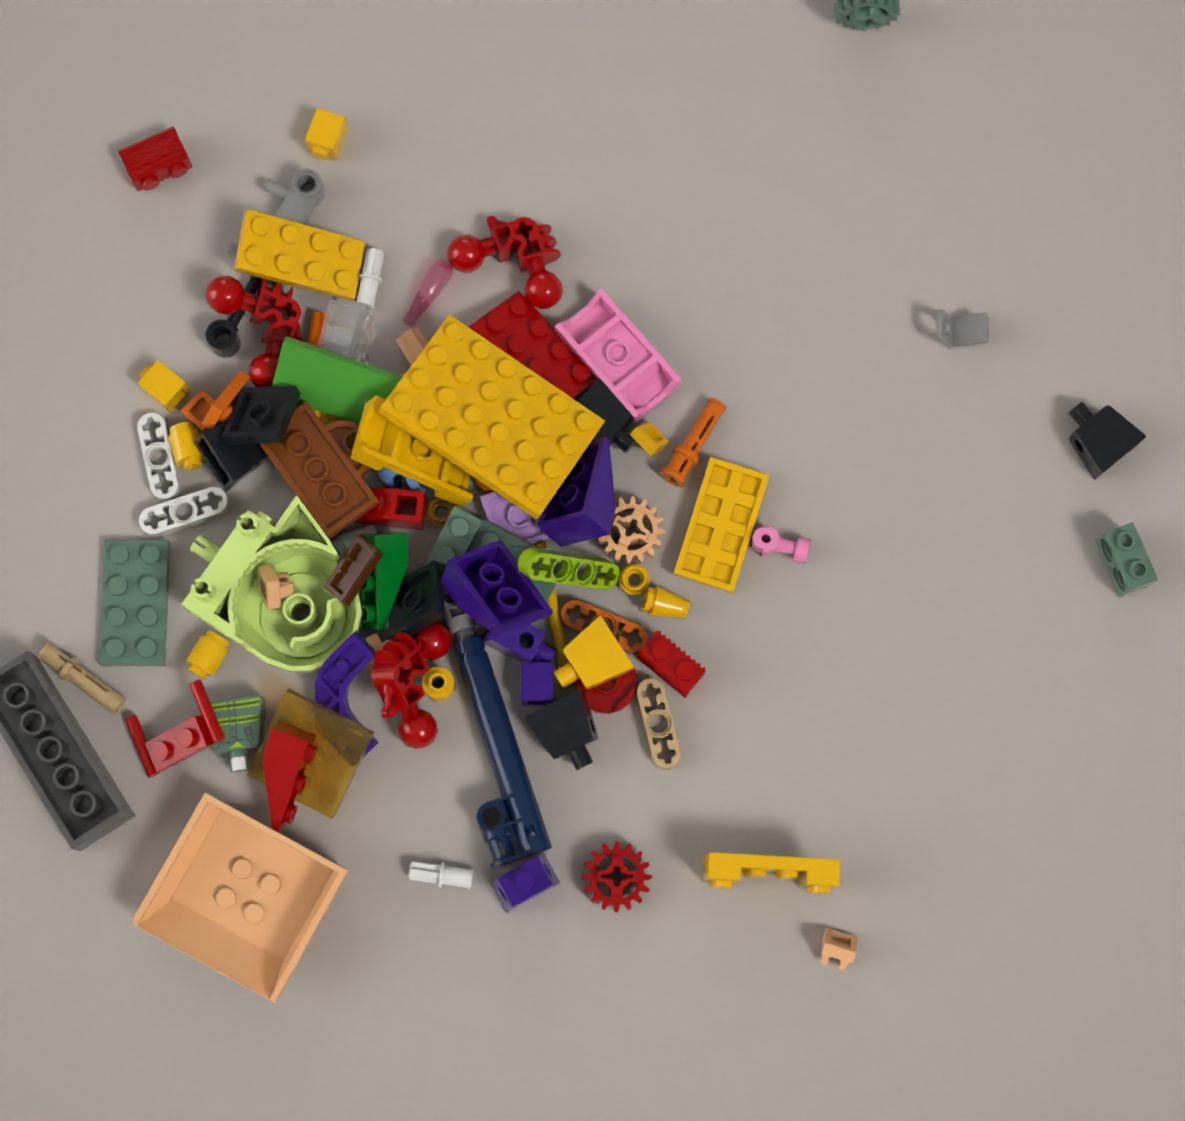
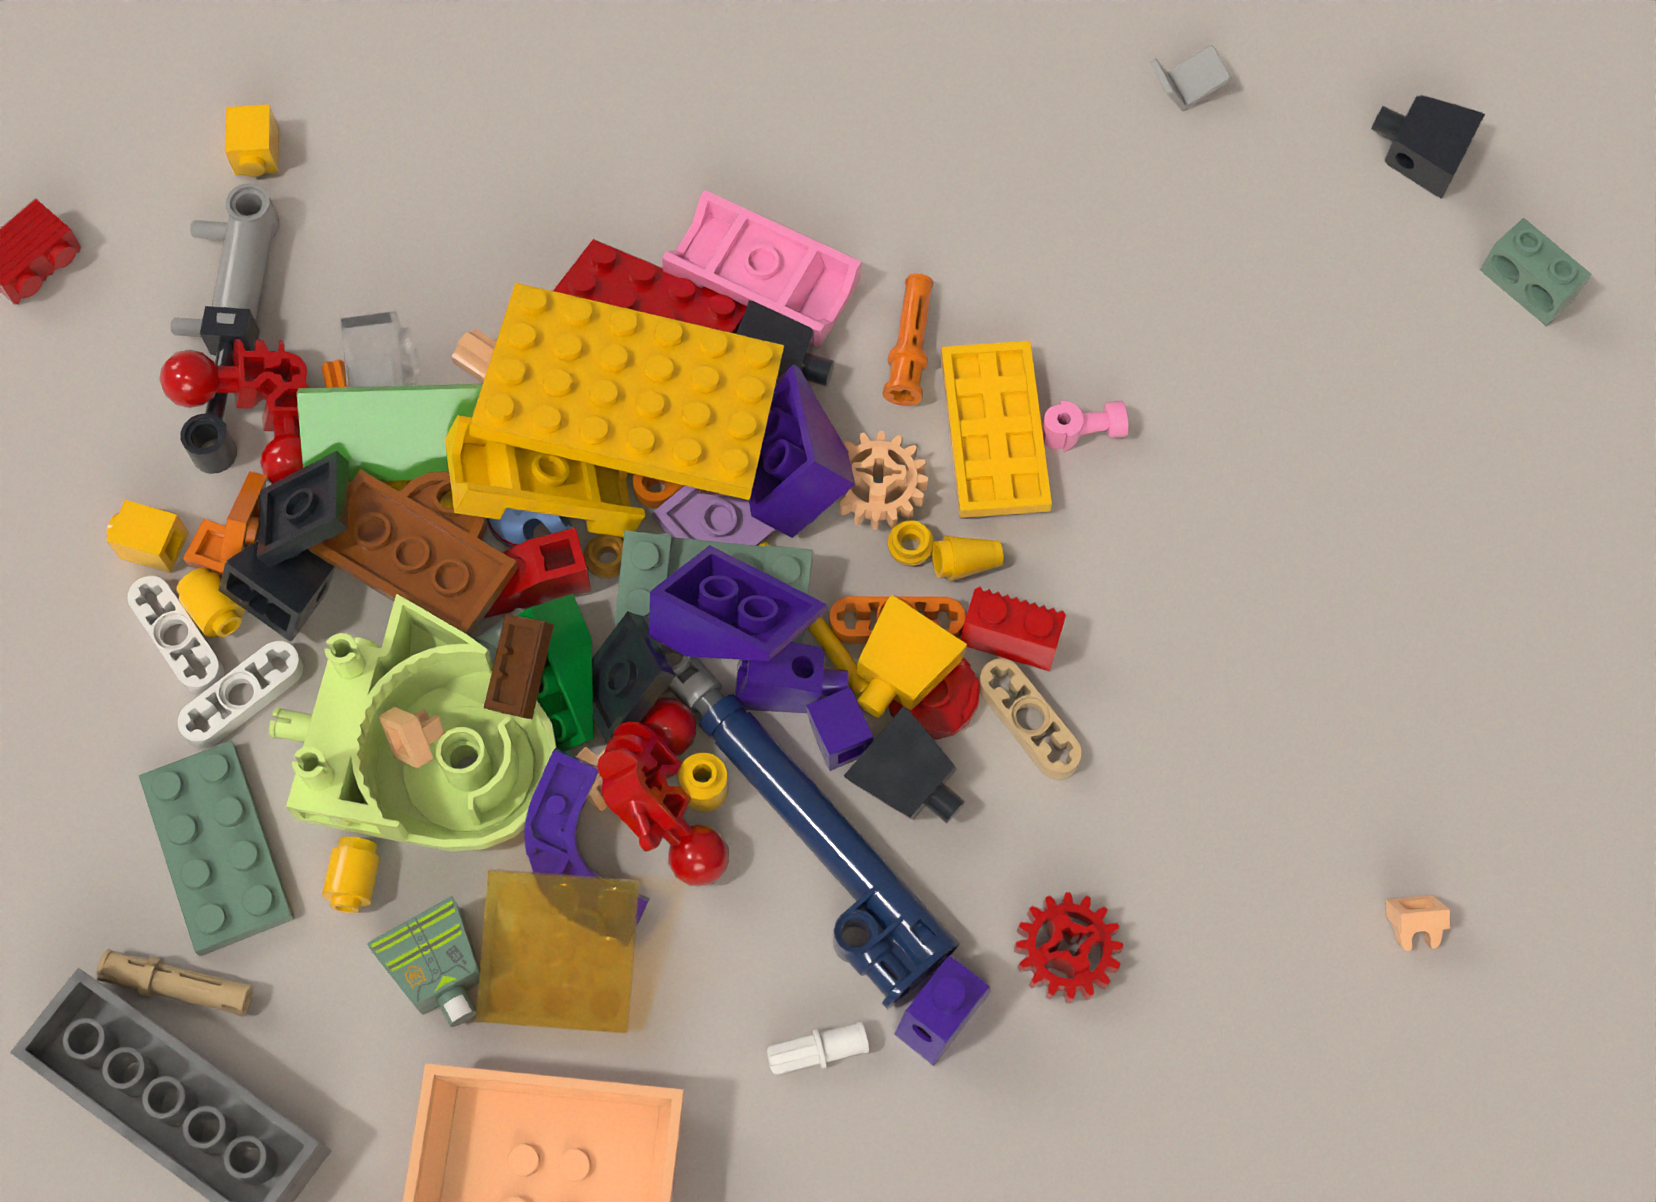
camera: 20 degrees left, 10 degrees down
(180, 741) = (358, 1009): red plate -> none
(284, 766) = (528, 978): red slope -> none
(299, 255) = (270, 294): yellow plate -> none
(370, 277) = (383, 292): white axle -> none
(432, 285) = (472, 279): clear pink piece -> none
(542, 287) = (575, 172): red piece -> none
(568, 571) = (820, 550): lime beam -> none
(649, 438) = (850, 354): yellow tile -> none
(815, 873) = (1334, 826): yellow piece -> none

